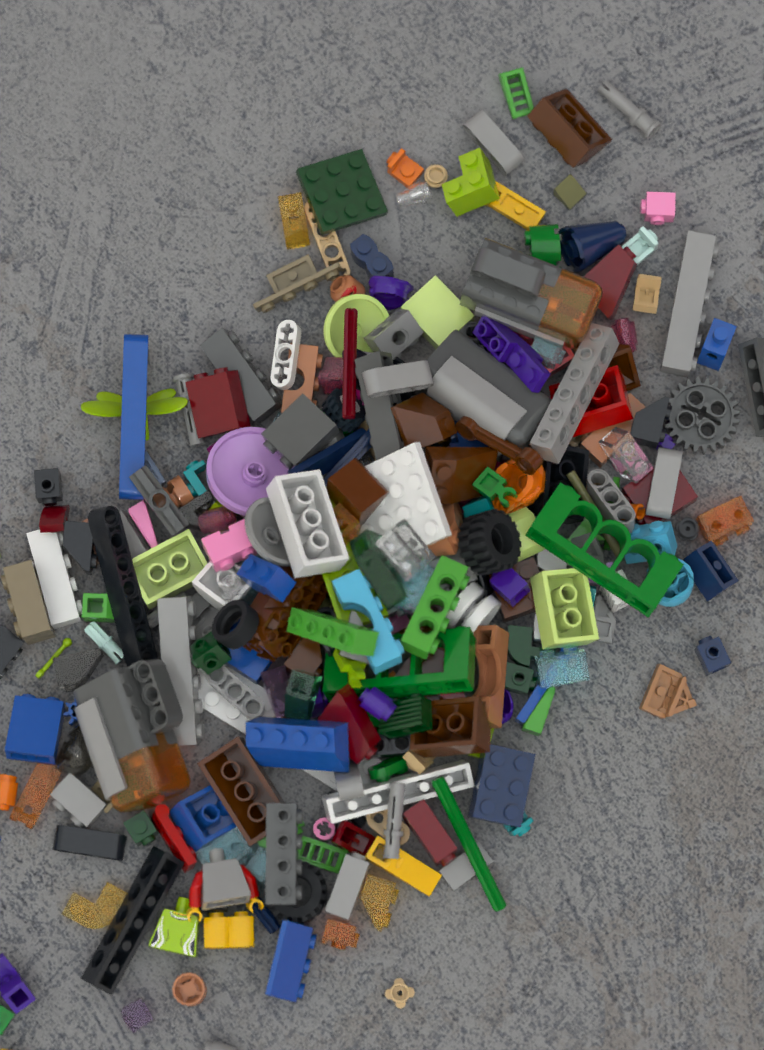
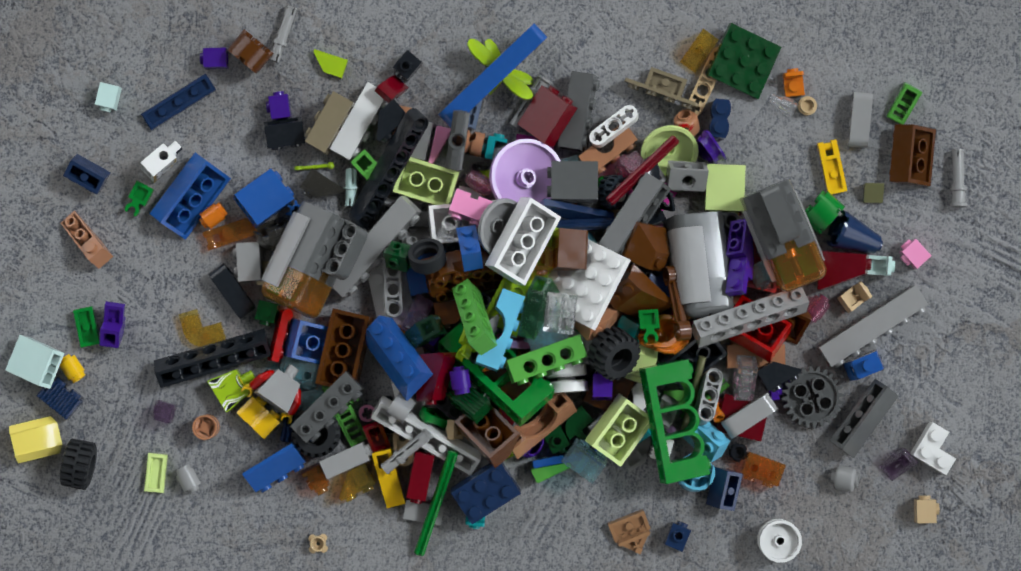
camera: 45 degrees right, 10 degrees up
(397, 379) = (656, 210): light grey beam -> none
(474, 187) = (821, 136): lime brick -> none

